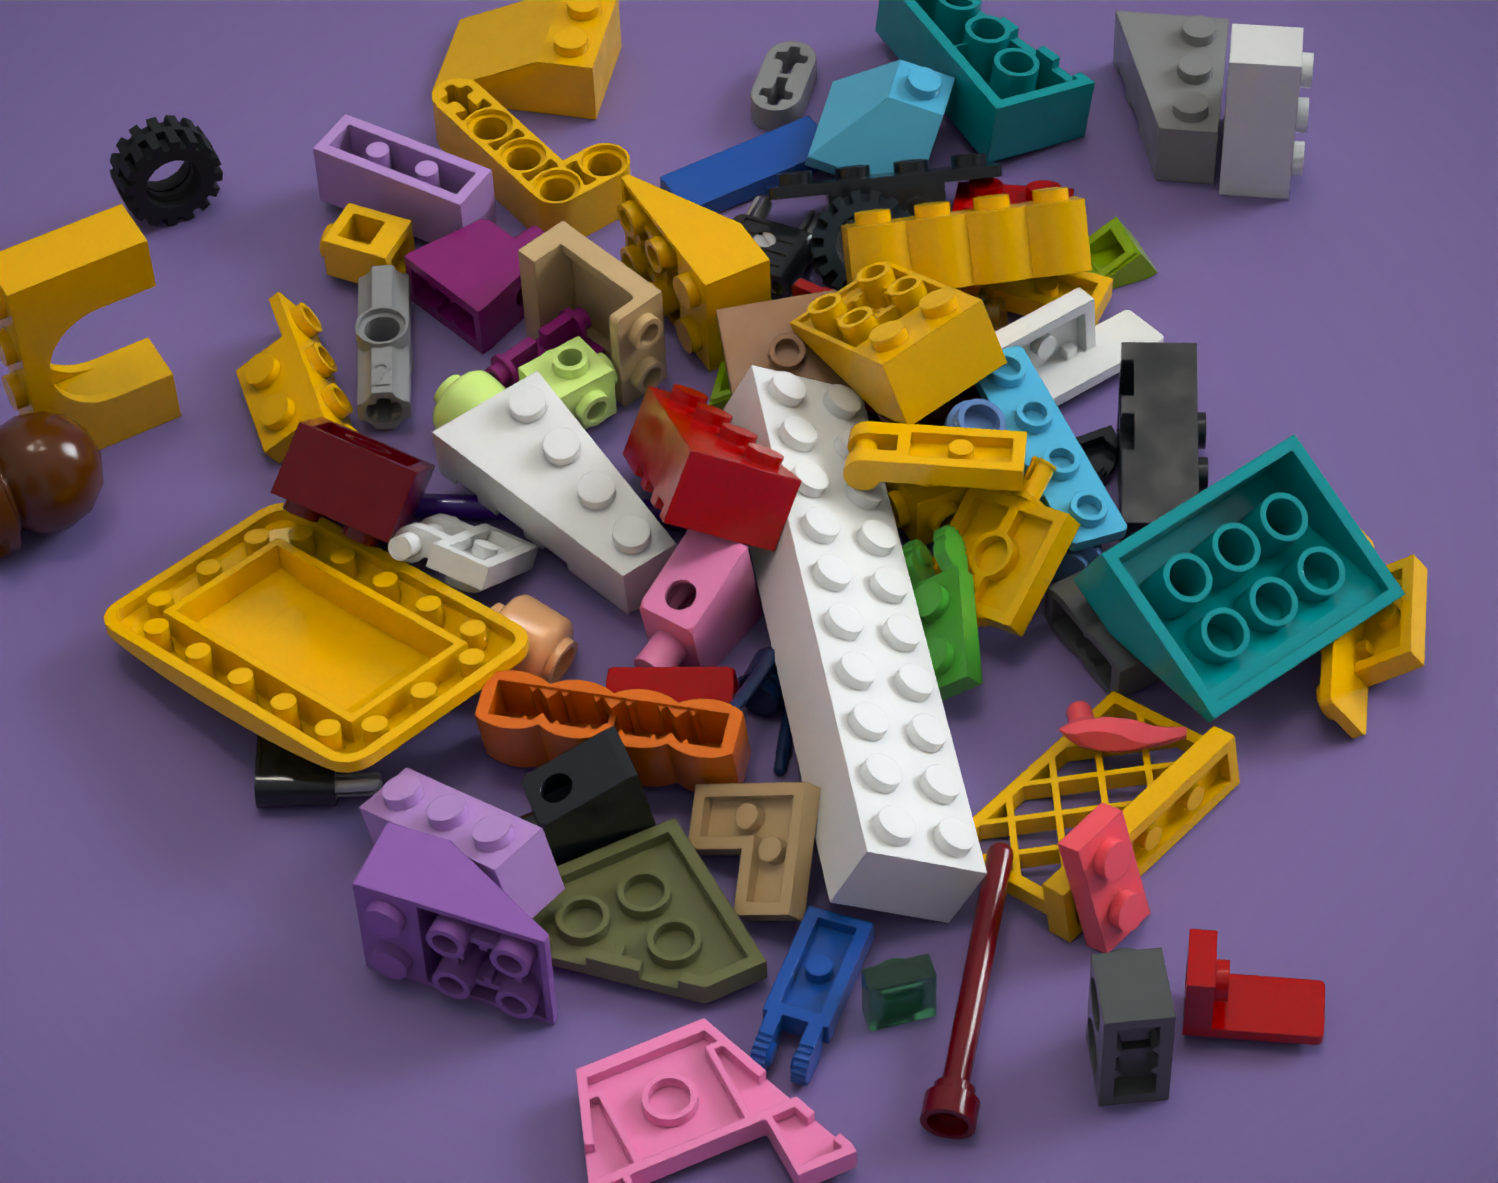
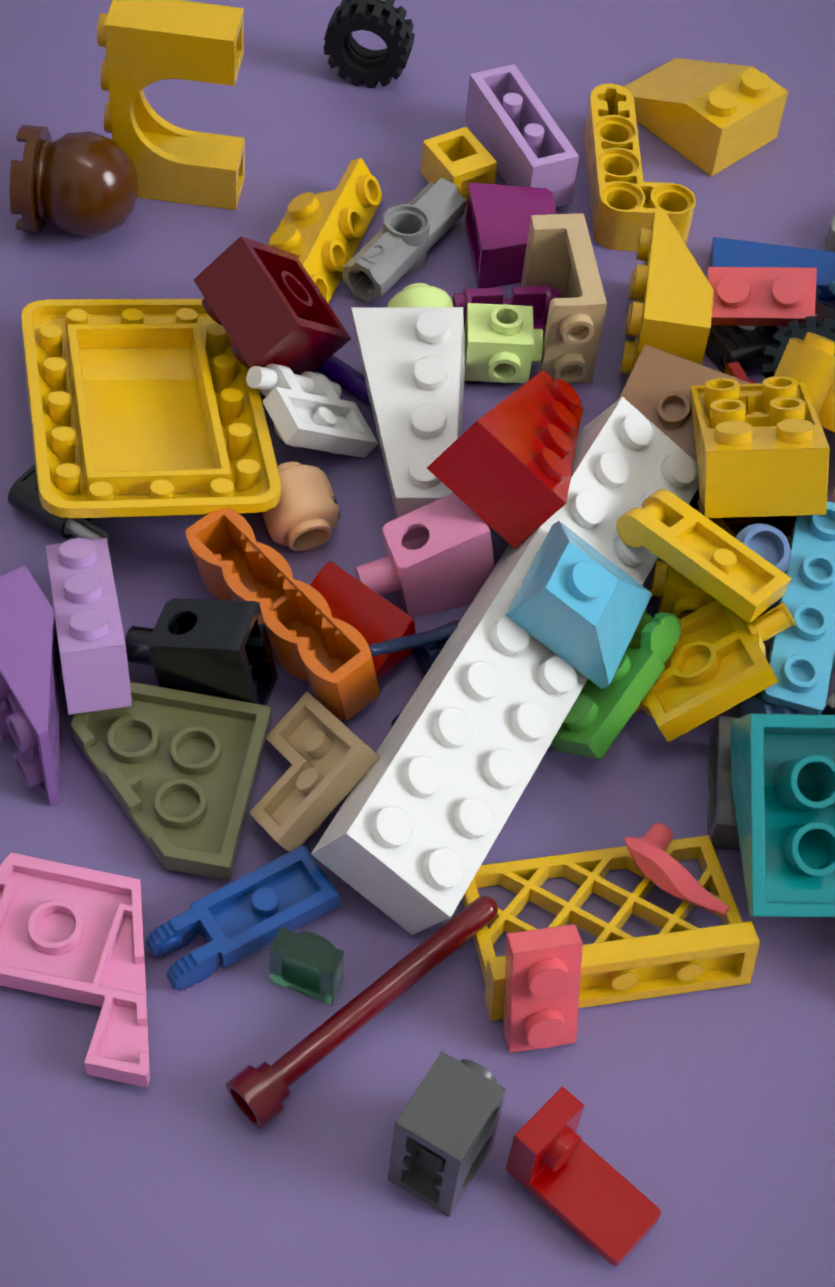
camera: 30 degrees right, 5 degrees up
(776, 199) = (762, 295): none -> coral plate
(873, 560) = (579, 605): none -> medium azure slope

